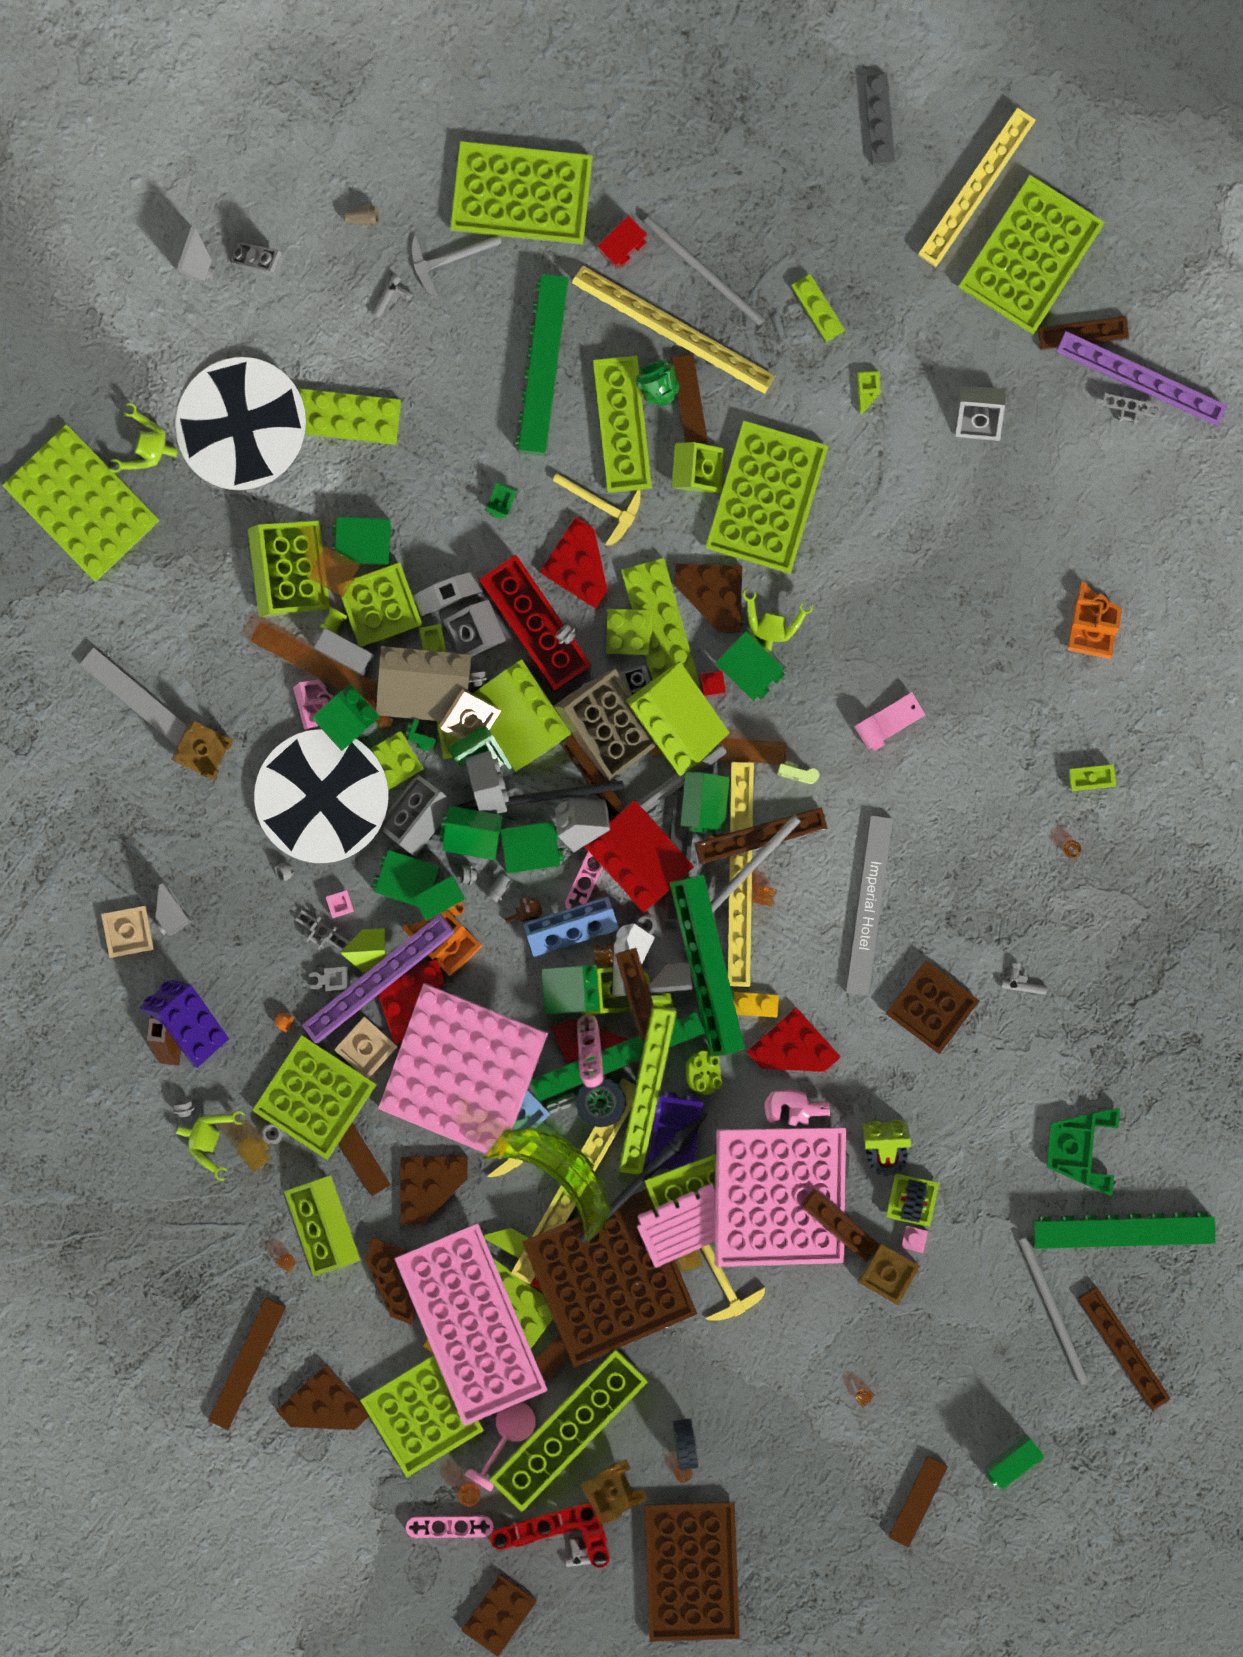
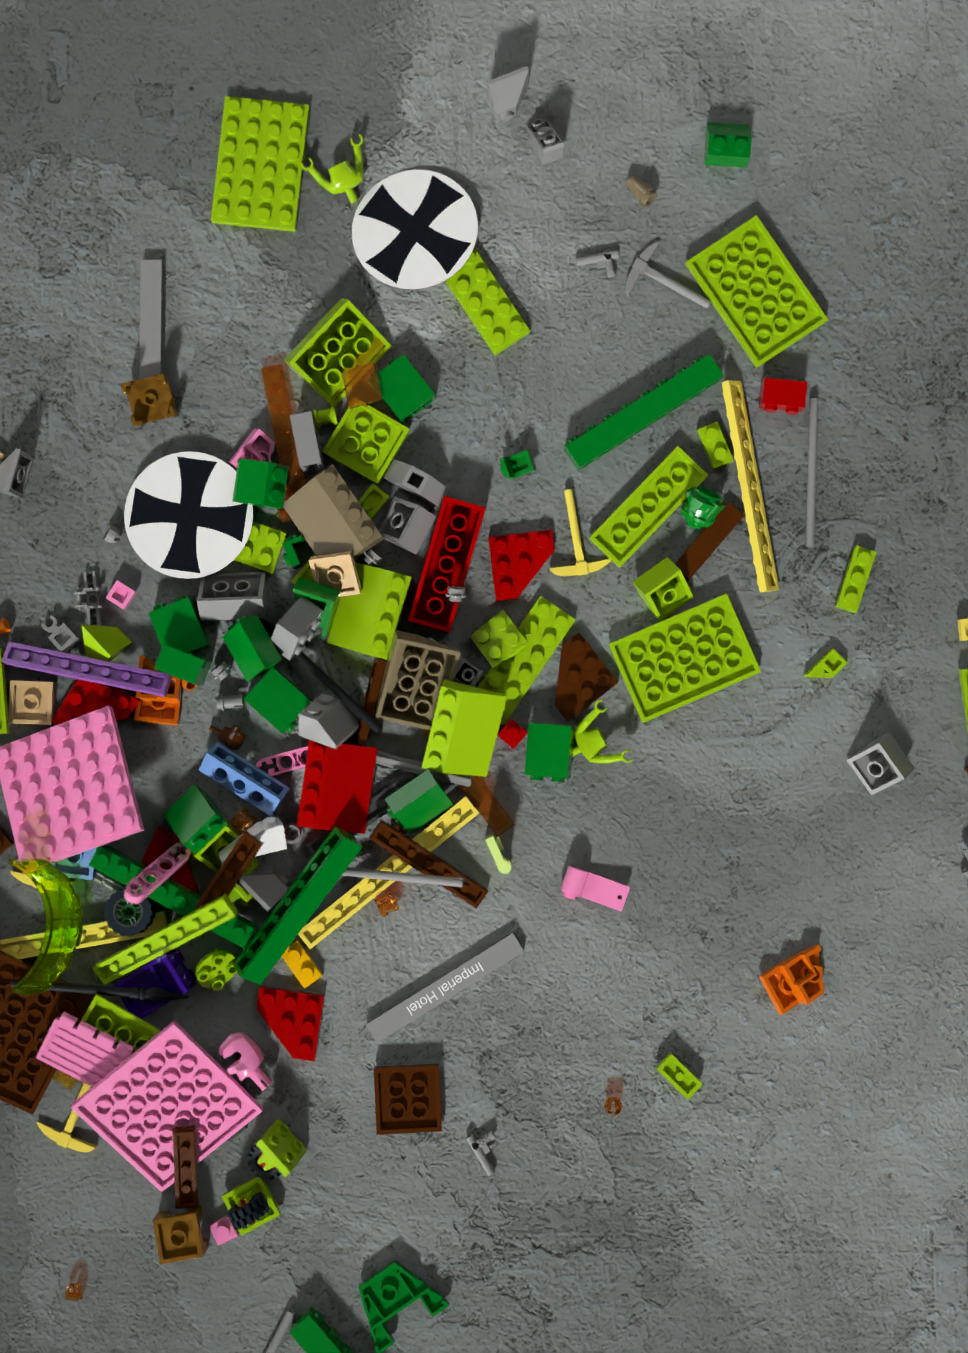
camera: 55 degrees right, 0 degrees up
(382, 114) = (727, 144): none -> green slope
(617, 329) = (715, 445): none -> lime plate

